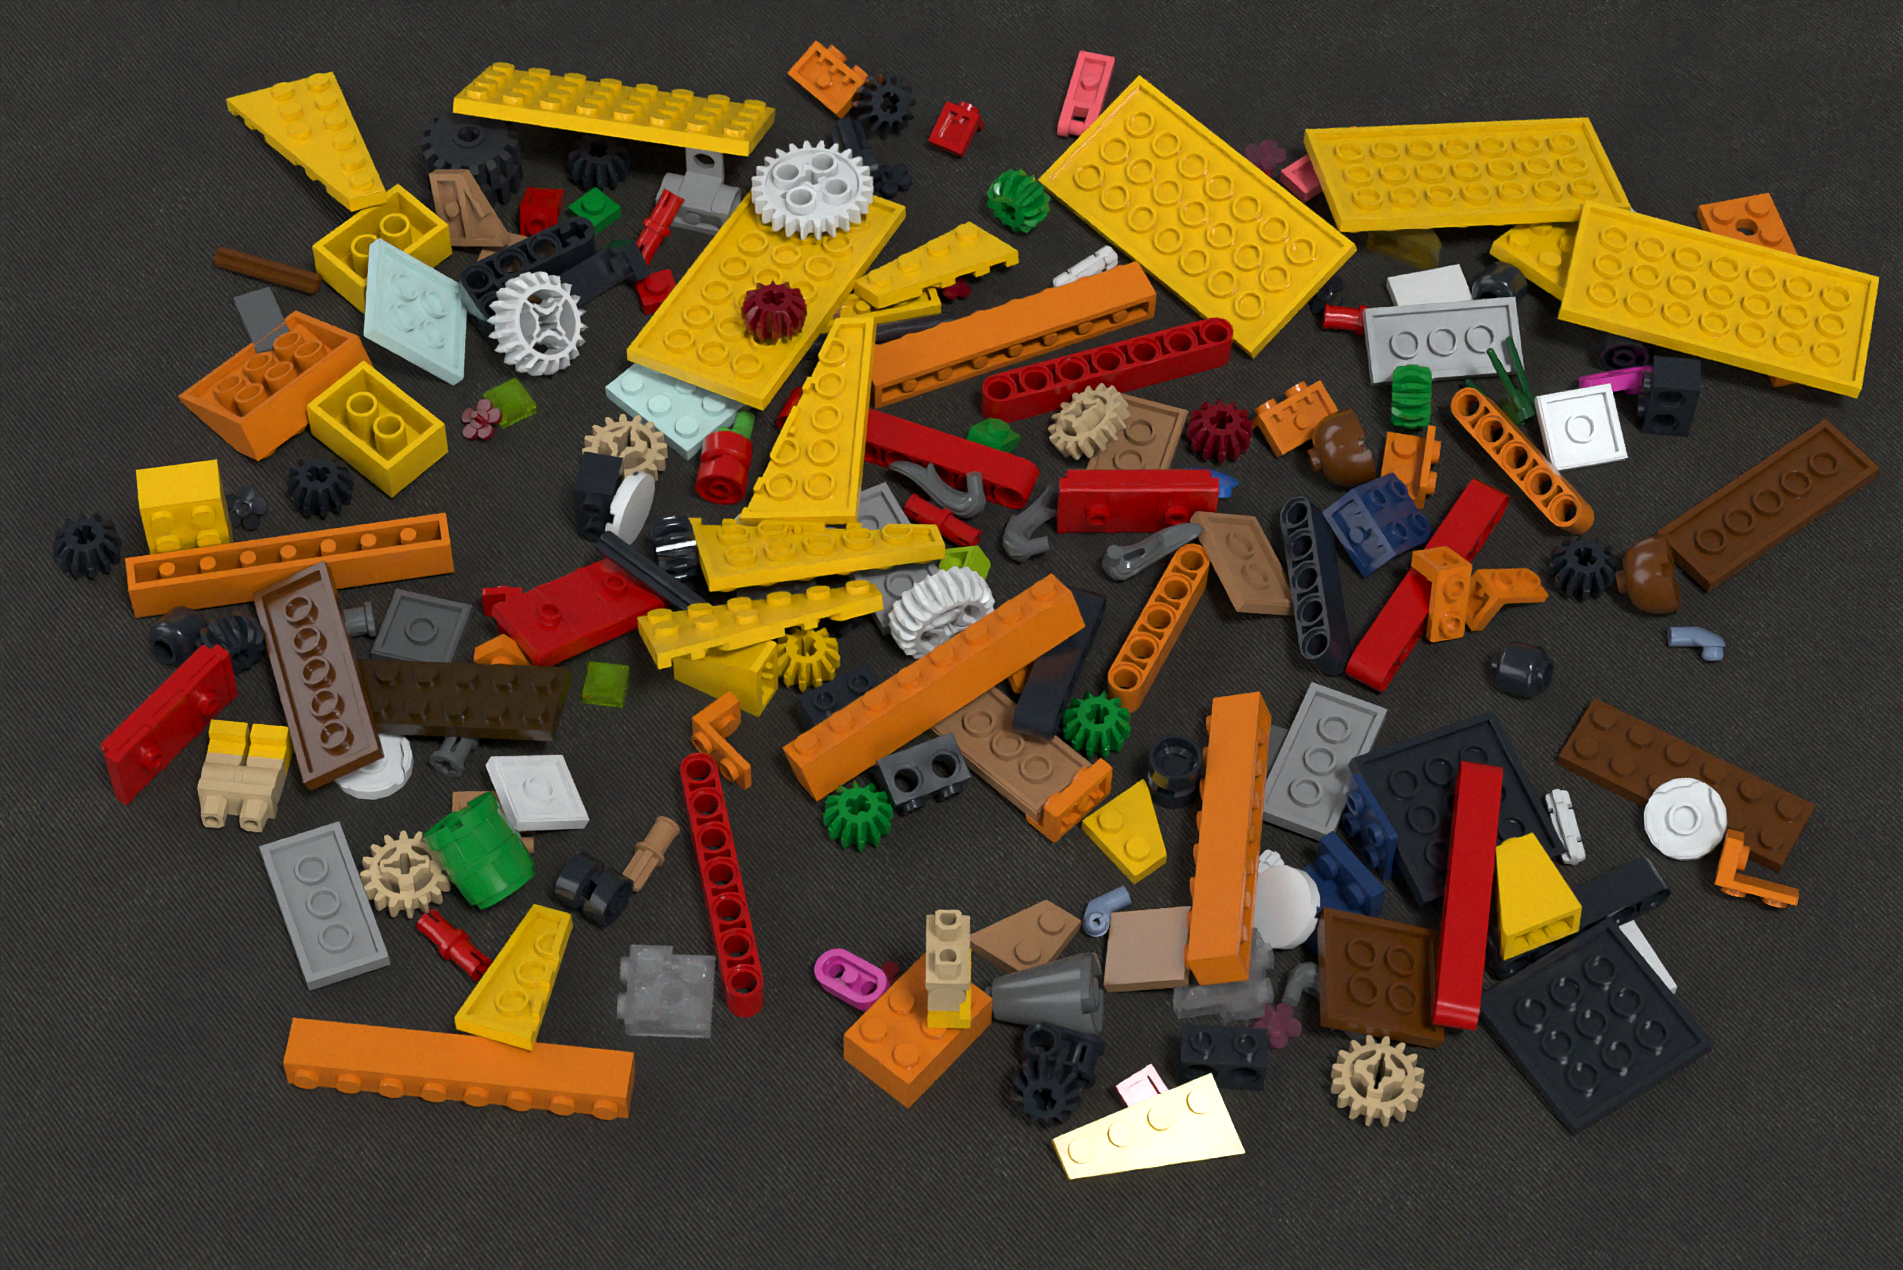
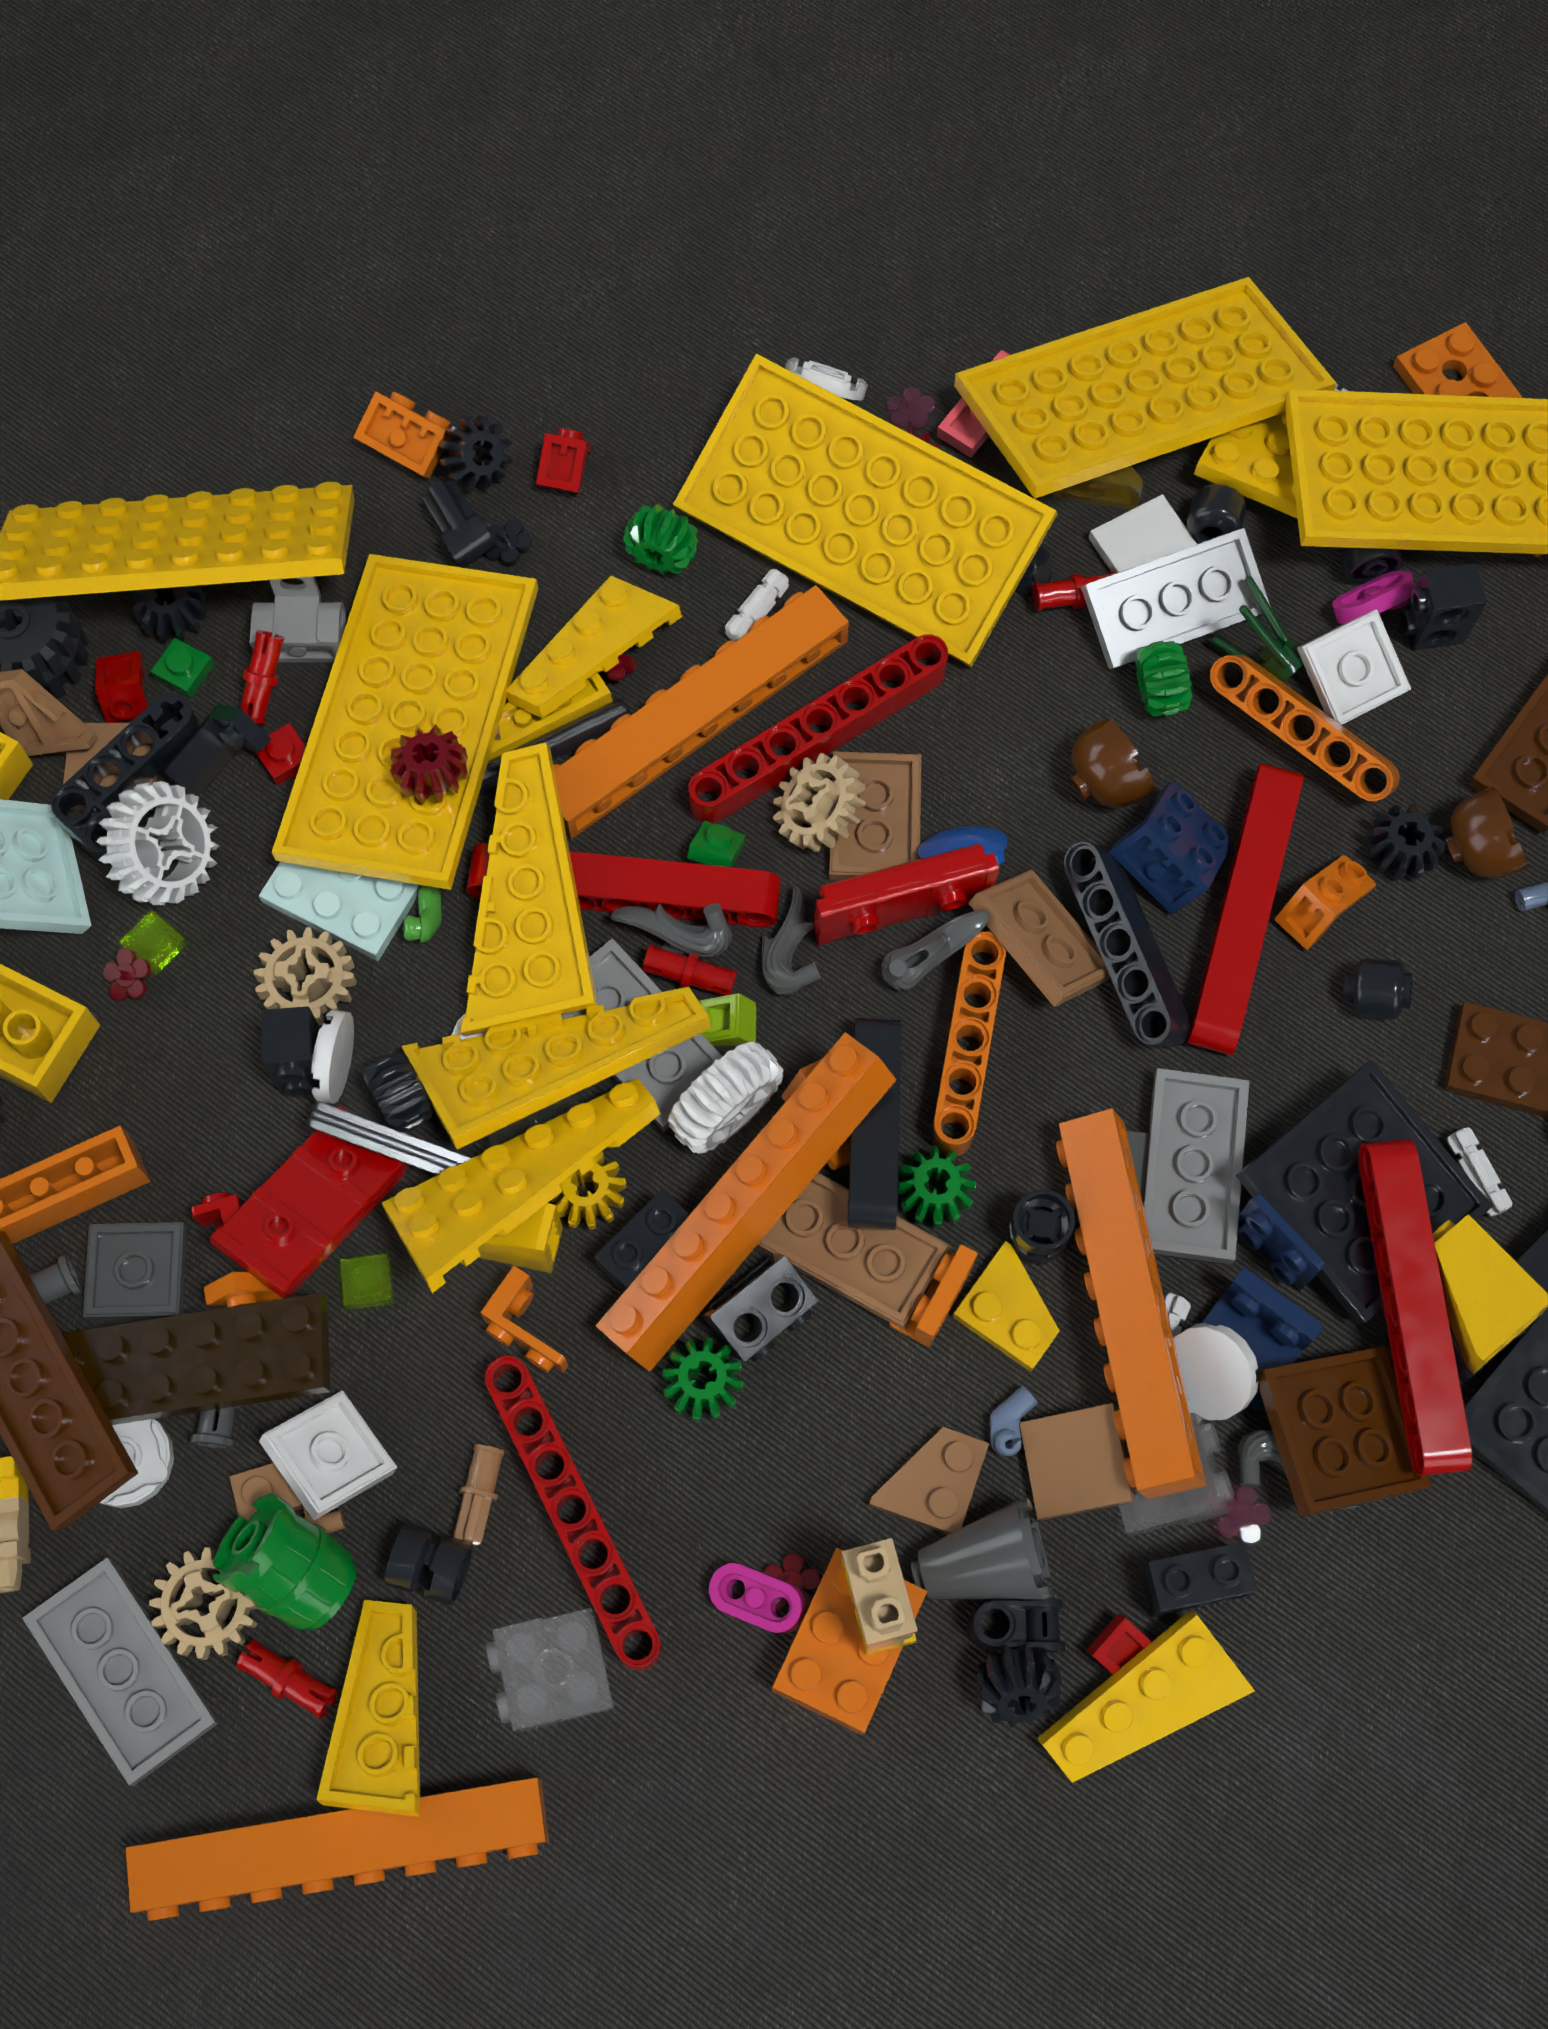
camera: 15 degrees left, 15 degrees up
(724, 467) = (425, 972): red wheel -> none
(812, 190) = (426, 588): white gear -> none
(1086, 92) = (695, 381): coral plate -> none
(1201, 114) = (829, 378): none -> white tile
(1220, 431) = (969, 759): dark red gear -> none
(1294, 419) = (1041, 733): orange bracket -> none
(1355, 1082) = (1374, 1578): tan gear -> none
(1411, 460) = (1182, 755): orange bracket -> none
(1449, 591) = (1280, 906): orange bracket -> none

